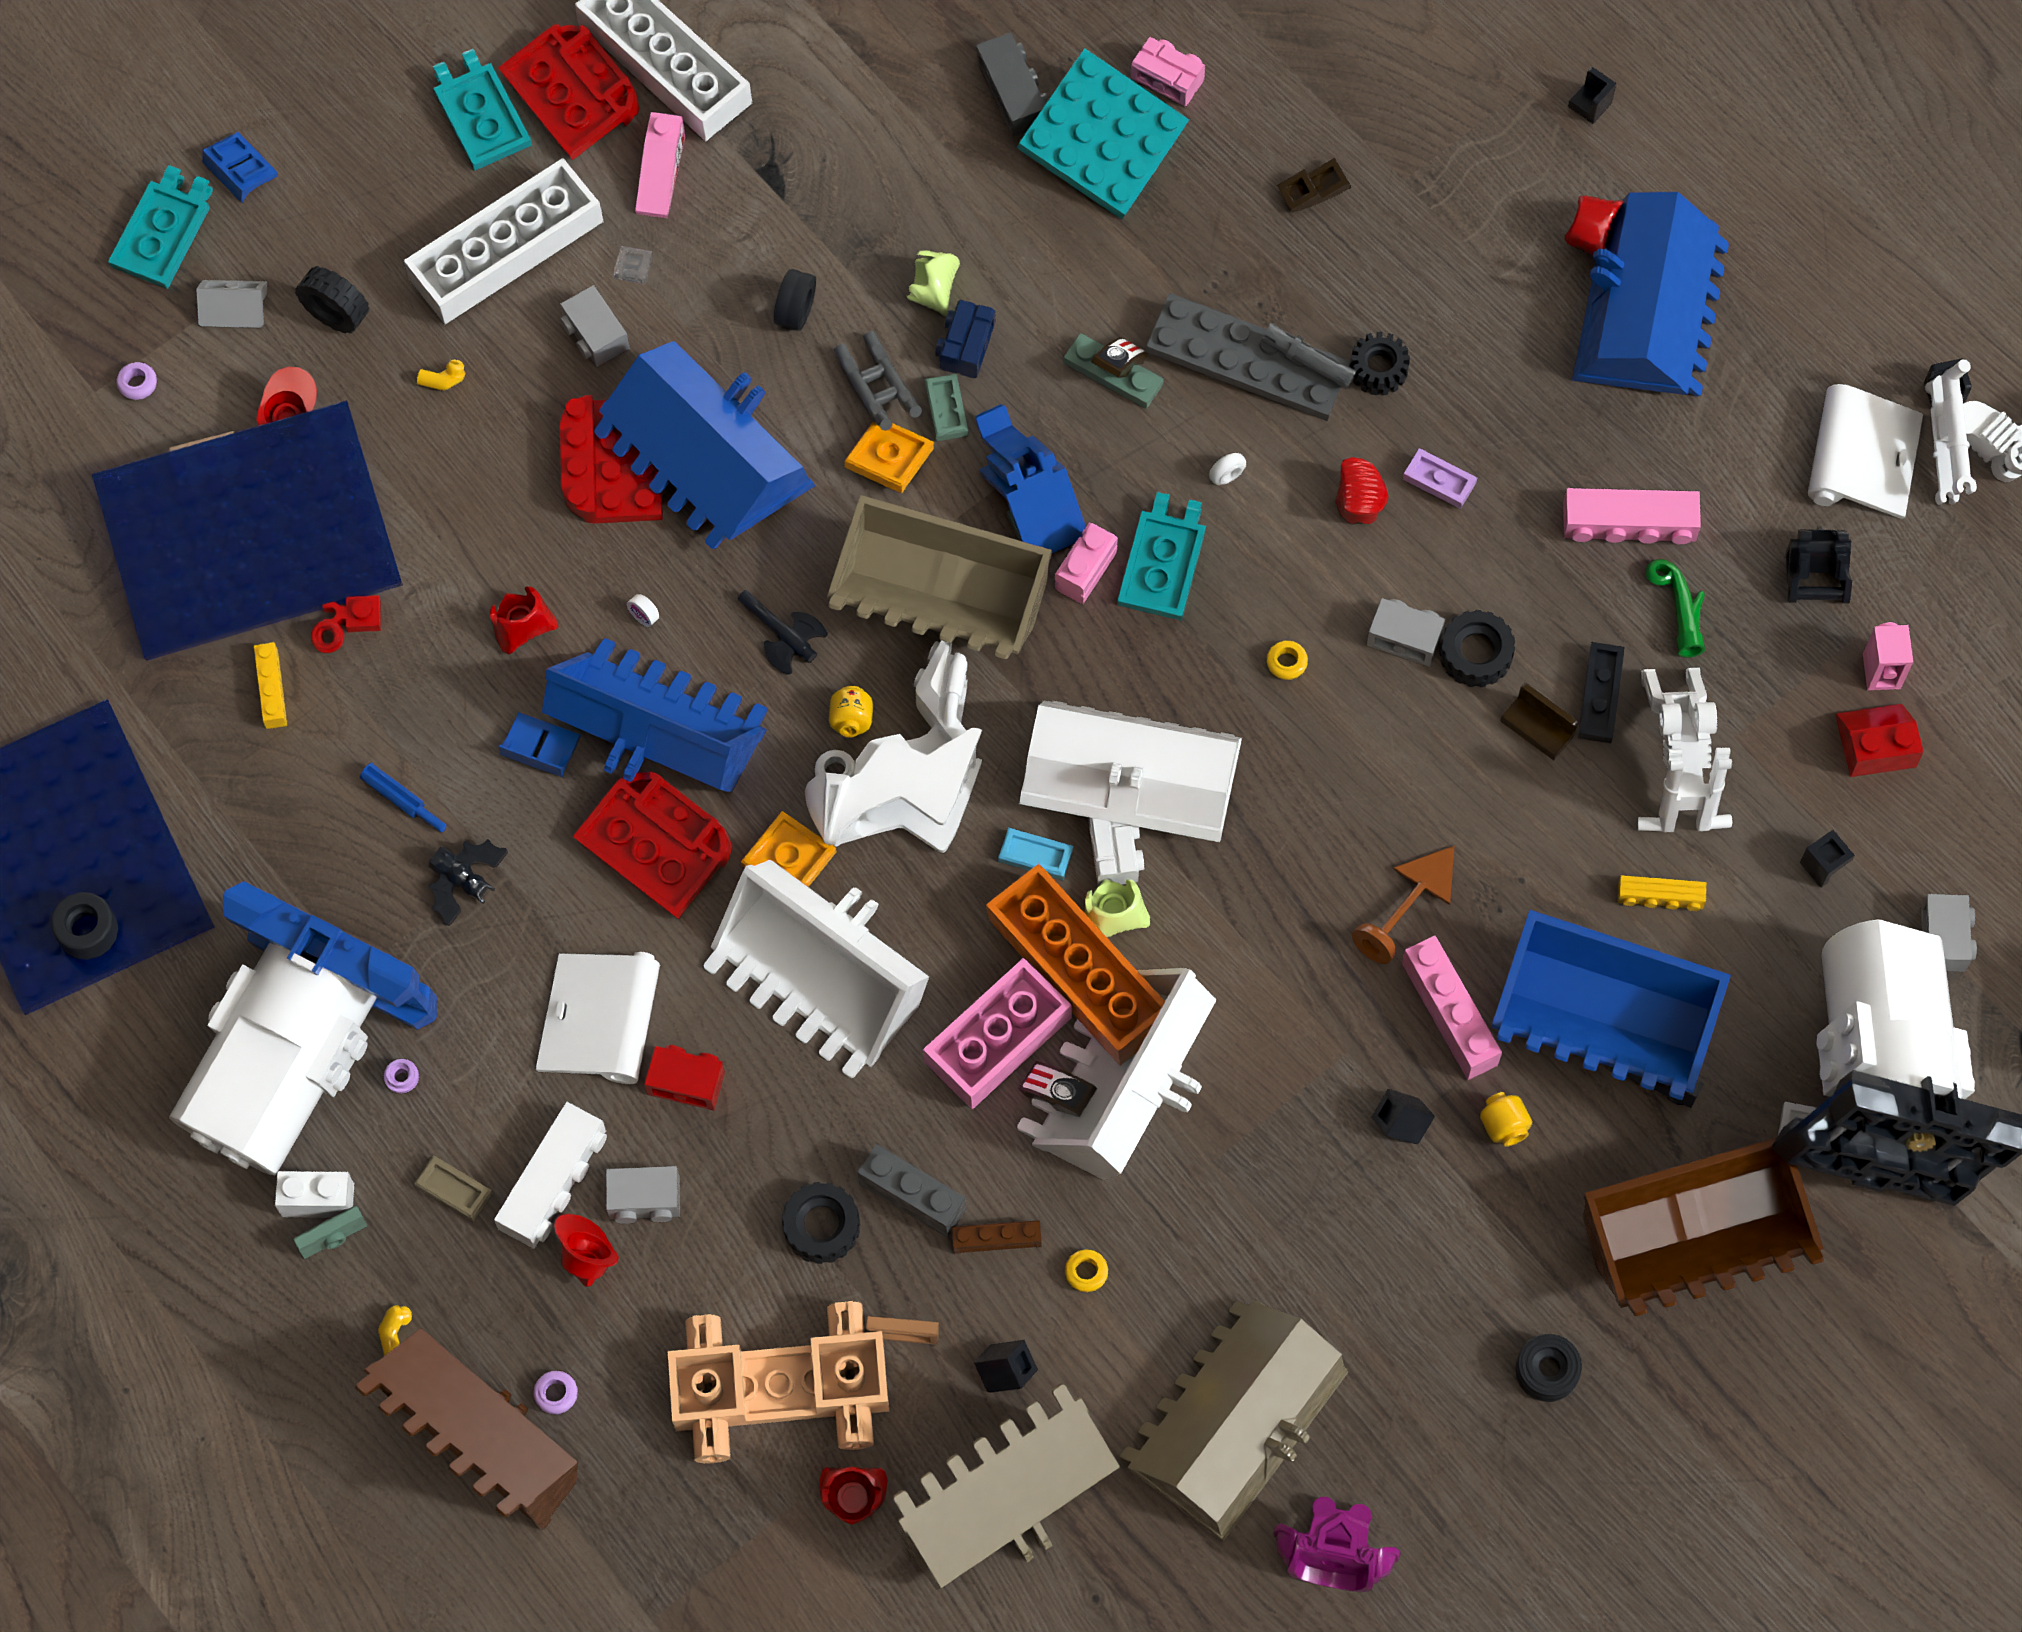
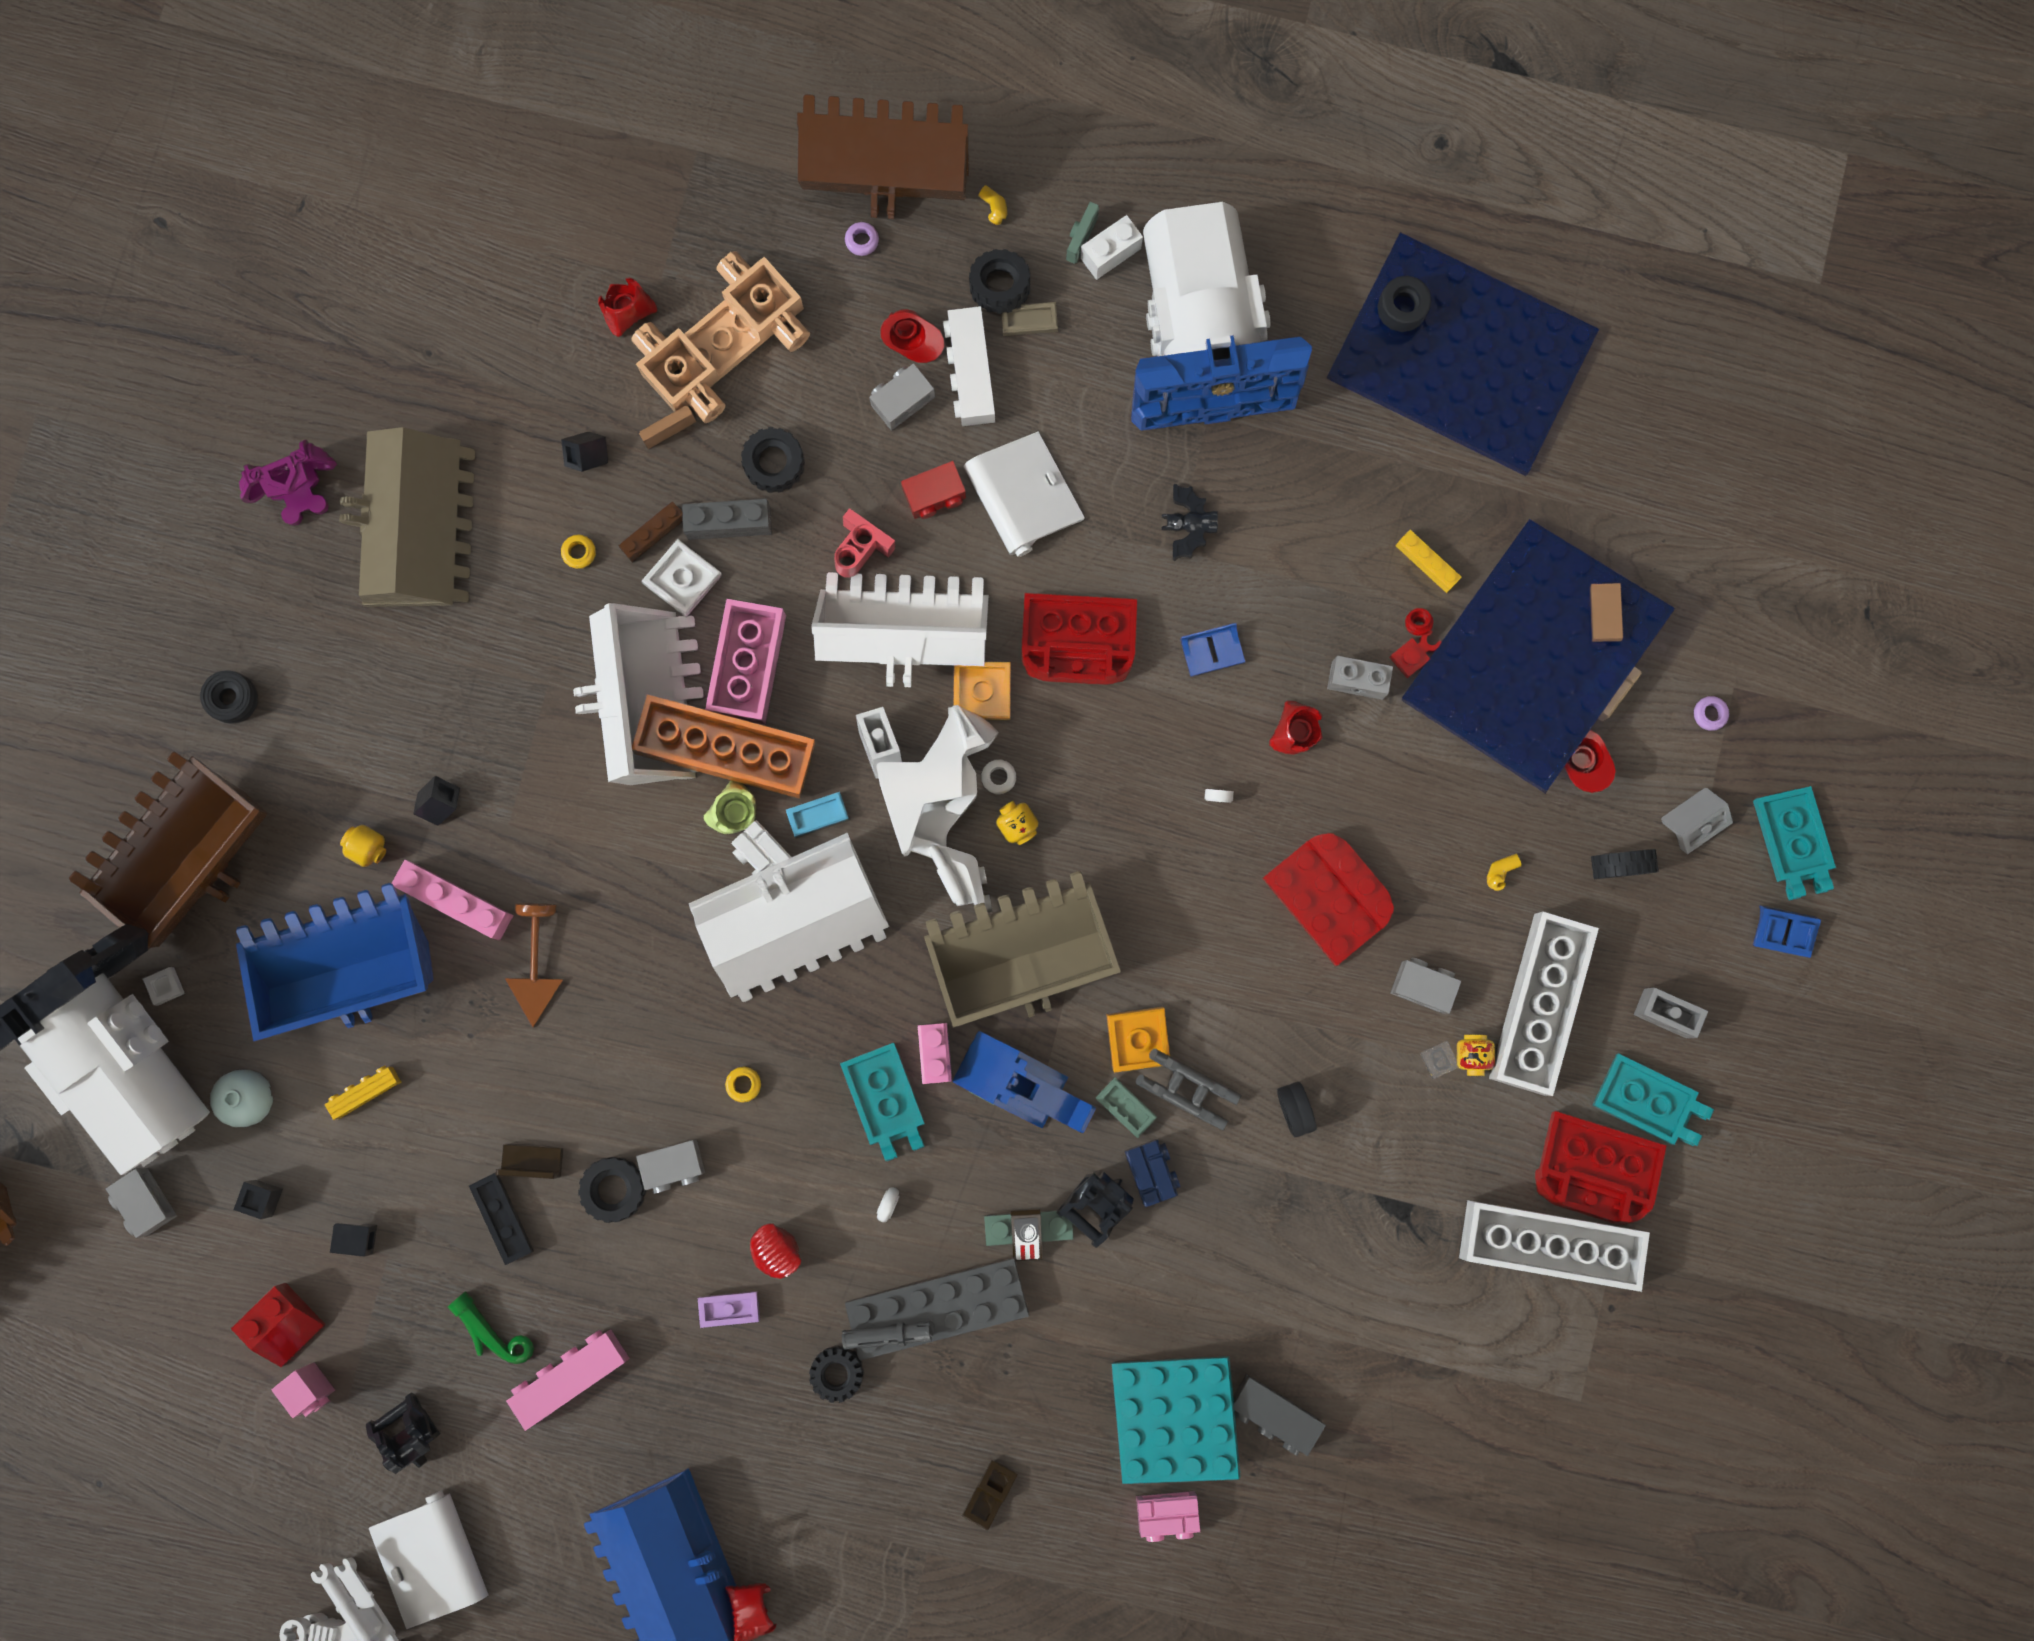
camera: 140 degrees right, 15 degrees up
(156, 511) = (1606, 612): none -> medium nougat tile
(397, 1067) = (1121, 356): lavender plate -> none
(399, 795) = (1287, 548): blue axle -> none
(401, 161) = (1670, 1013): none -> light grey brick
(425, 622) = (1360, 677): none -> light grey brick
(426, 1235) = (999, 261): none -> black tyre
(598, 245) = (1475, 1054): none -> head
(652, 717) = (1147, 719): blue piece -> none
(660, 164) = (1483, 1152): bright pink slope -> none
(701, 442) = (1273, 946): blue piece -> none
(792, 639) = (1100, 851): black piece -> none
(809, 1077) = (860, 552): none -> coral tile
(925, 864) = (877, 738): none -> white brick
(934, 280) = (1210, 1201): yellowish green hair -> none
(1000, 1170) = (681, 578): none -> white tile
(1005, 1491) = (511, 353): piece -> none
(1025, 341) = (1104, 1198): none -> black piece
(1058, 1088) = (680, 654): slope -> none
(1686, 727) = (403, 1212): white piece -> none
(1757, 761) = (353, 1239): none -> black panel
(1786, 967) = (241, 1098): none -> light aqua cylinder

